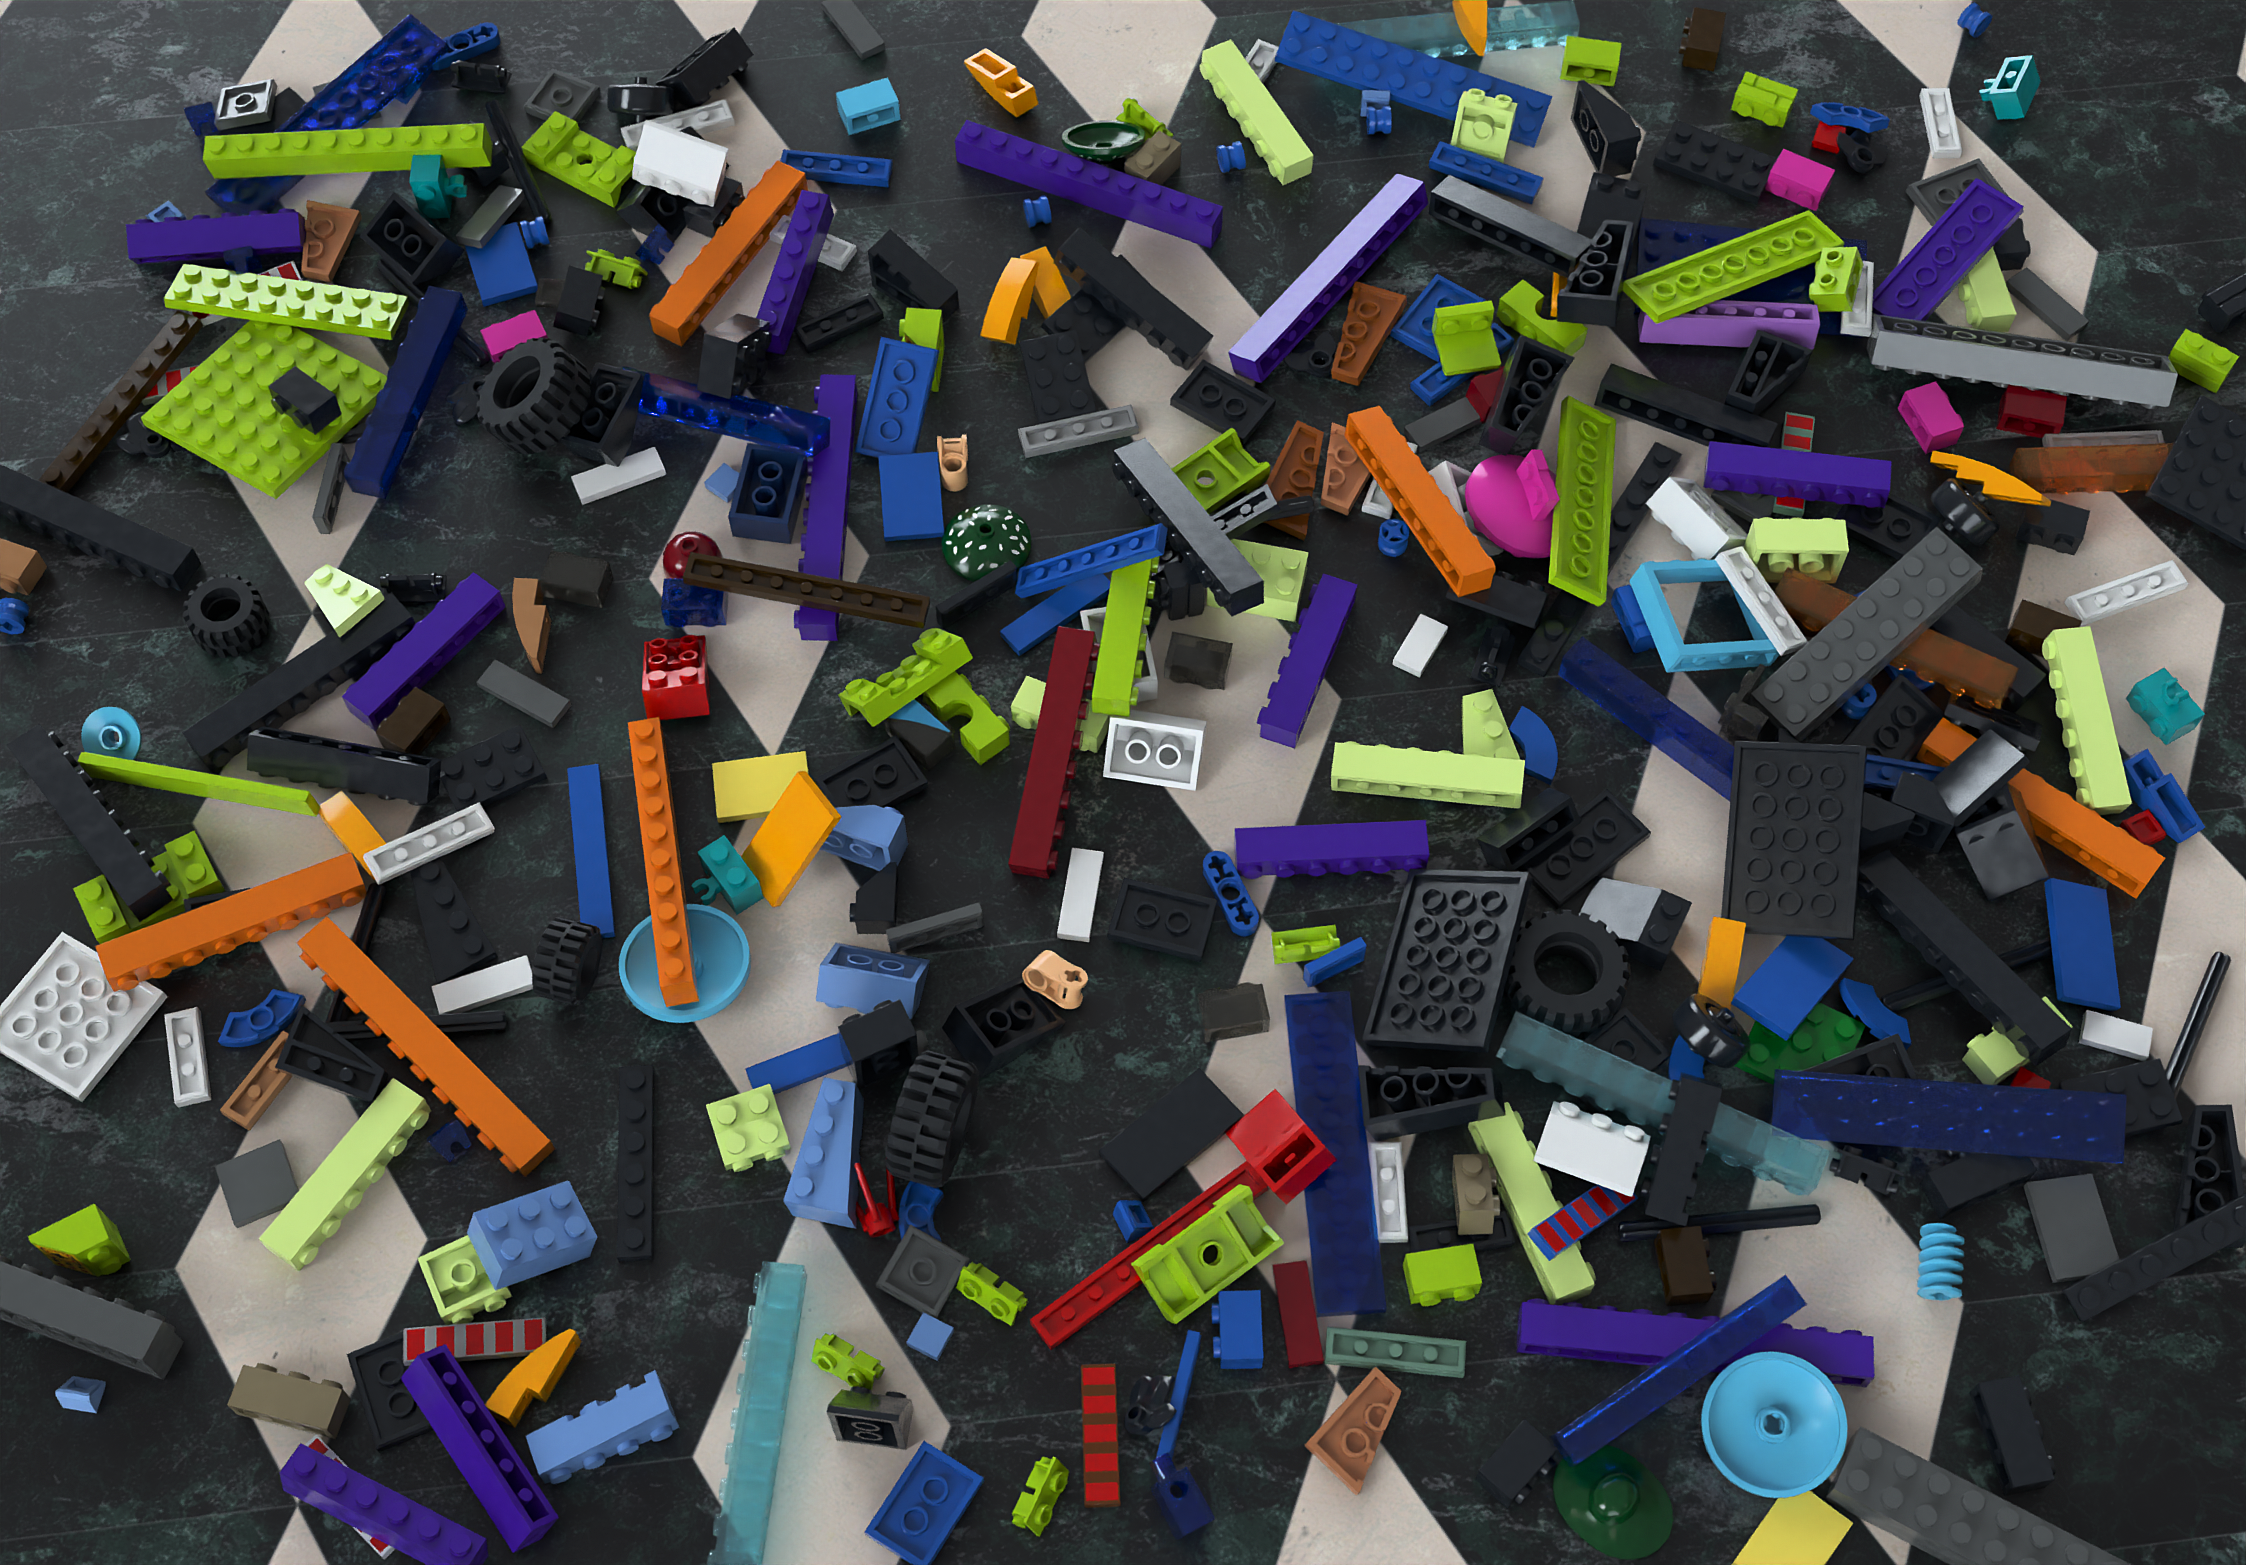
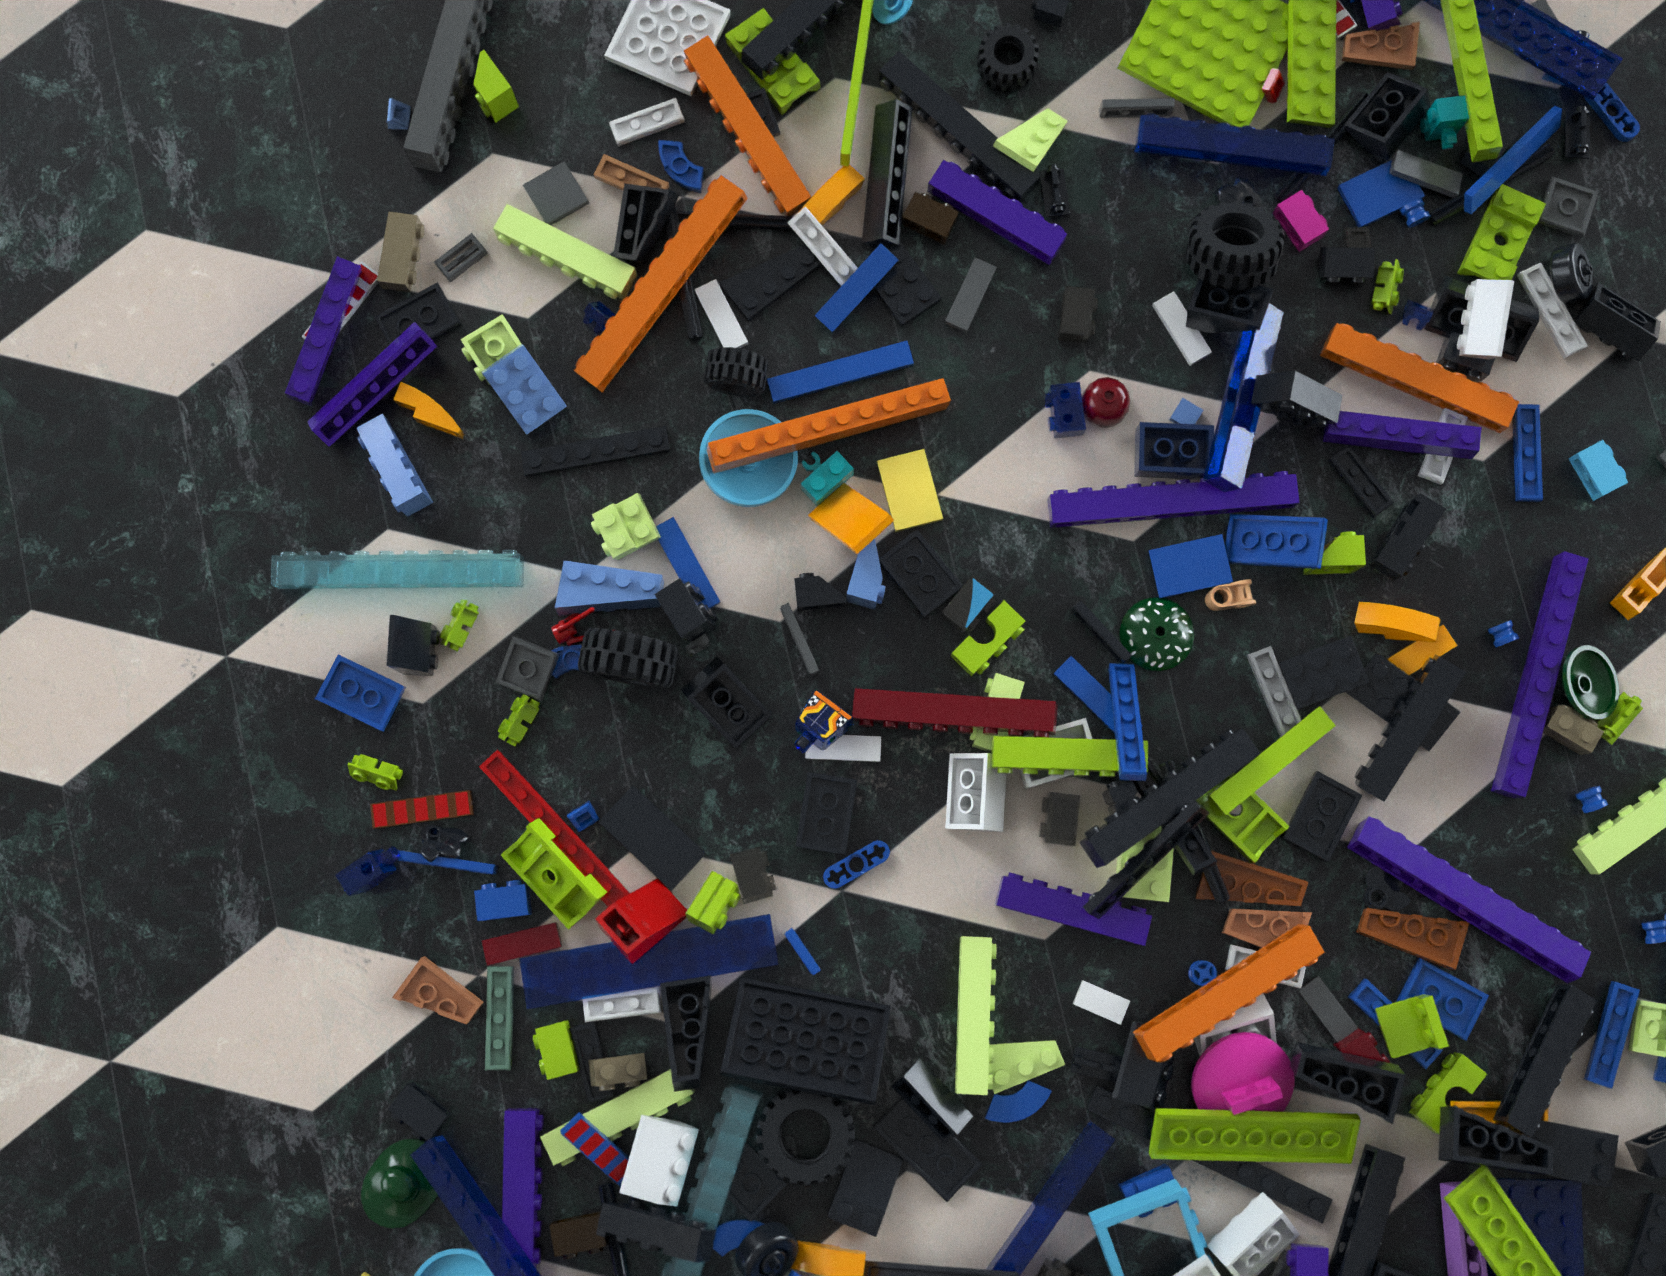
camera: 85 degrees right, 20 degrees up
(304, 400) = (1202, 67): black brick -> none
(330, 1344) = (467, 263): none -> dark grey tile
(343, 347) = (1273, 86): none -> red tile
(477, 1339) = (452, 366): tile -> none
(485, 815) = (856, 287): none -> blue tile
(497, 132) = (1512, 160): none -> blue tile
(531, 620) = (1032, 287): medium nougat slope -> none
(676, 678) = (996, 407): red slope -> none
(806, 590) = (1077, 496): dark brown plate -> none
(867, 977) = (752, 599): medium blue slope -> none
(930, 1336) = (483, 680): medium blue tile -> none
(936, 658) = (993, 574): lime piece -> none
(1046, 909) = (821, 723): none -> torso
(1054, 977) = (767, 734): light nougat piece -> none
(1144, 423) = (1271, 761): none -> lime tile
(1250, 547) = (1139, 865): none -> black plate
(1264, 1057) = (713, 903): none -> lime brick
(1304, 943) = (817, 933): lime hinge -> none
(1331, 848) = (901, 942): dark purple brick -> none

